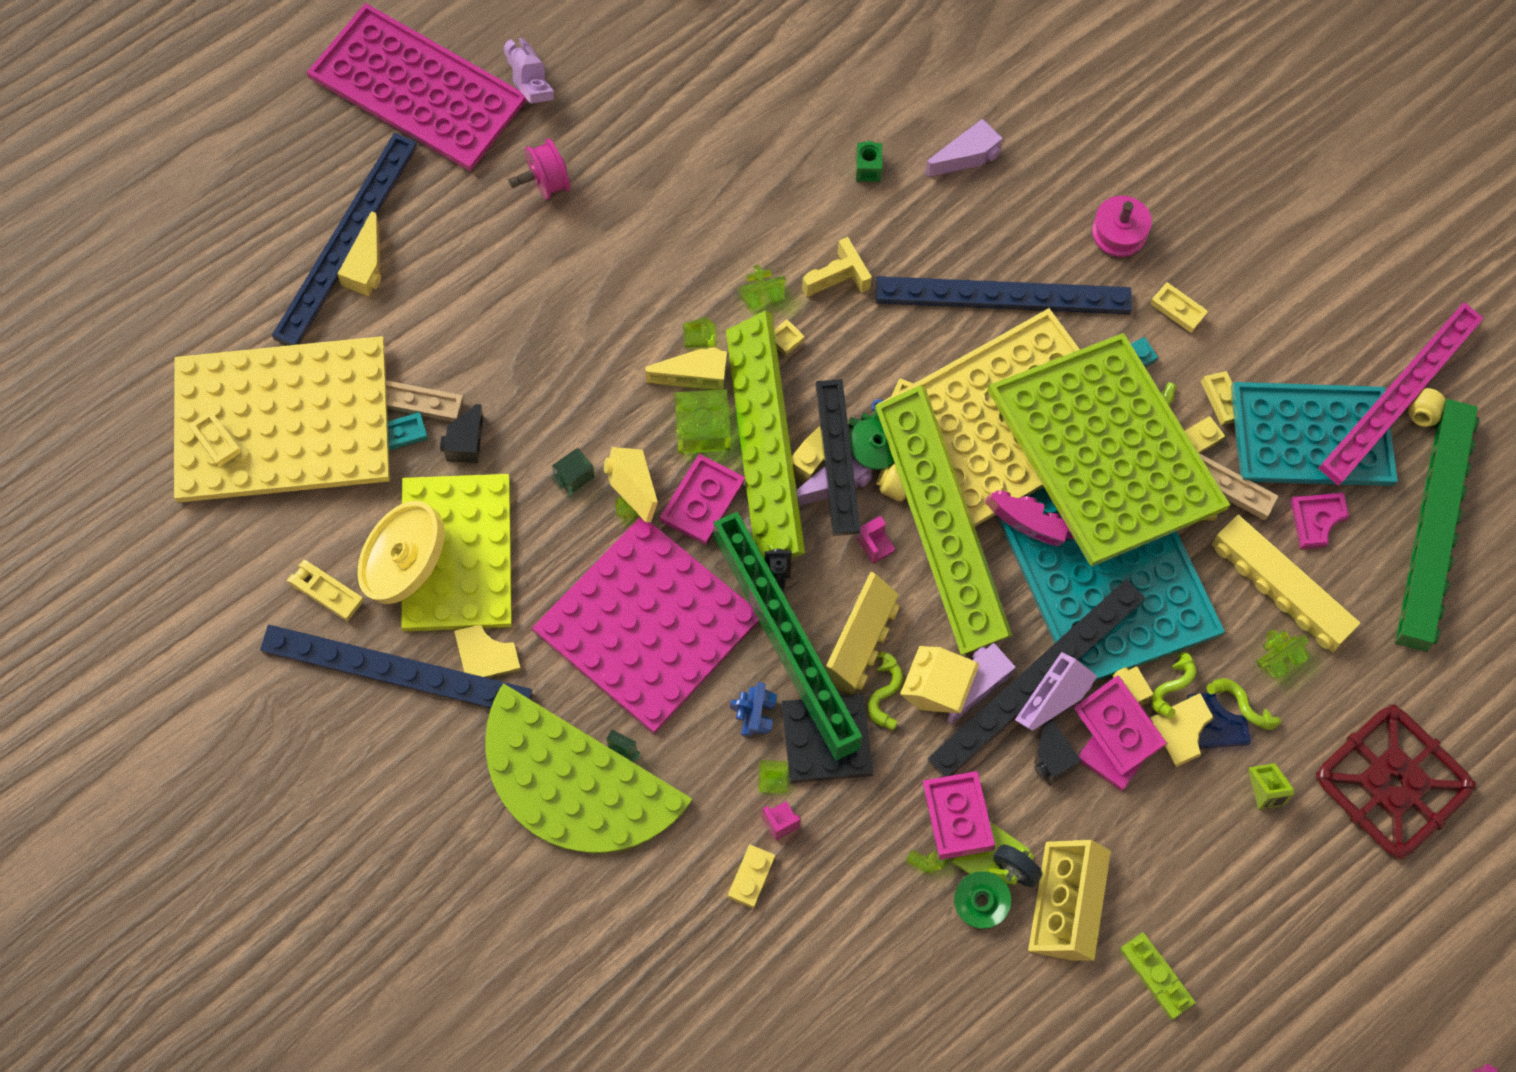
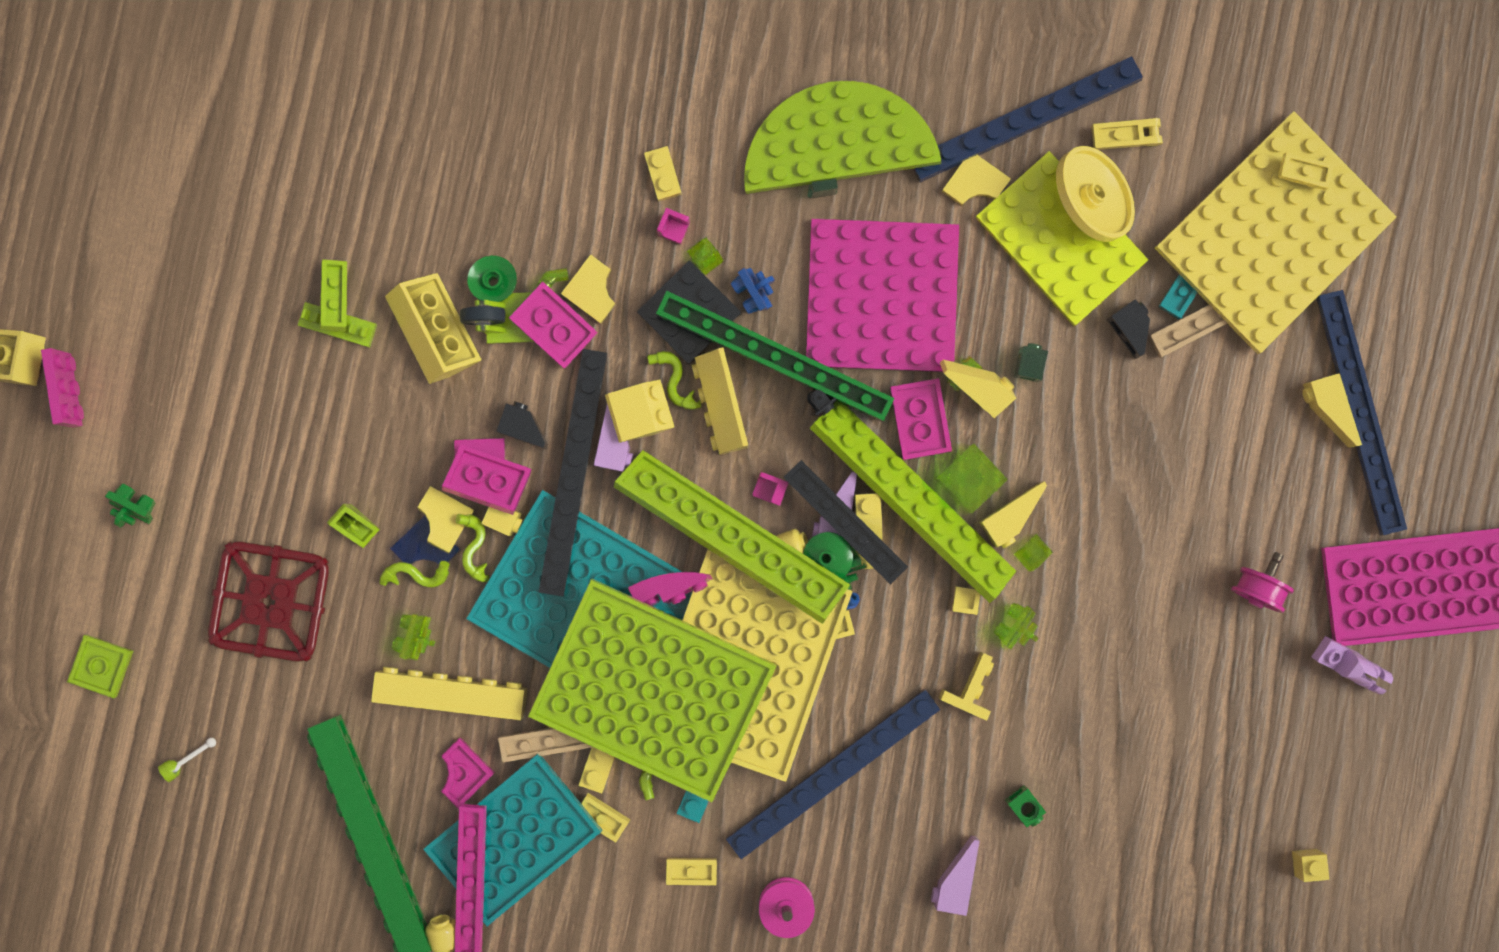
camera: 145 degrees right, 20 degrees up
(900, 826) = (589, 289): none -> light yellow tile
(1060, 688) = (549, 467): lavender slope -> none
(1142, 997) = (333, 295): none -> lime plate
(1475, 971) = (121, 500): none -> green hips

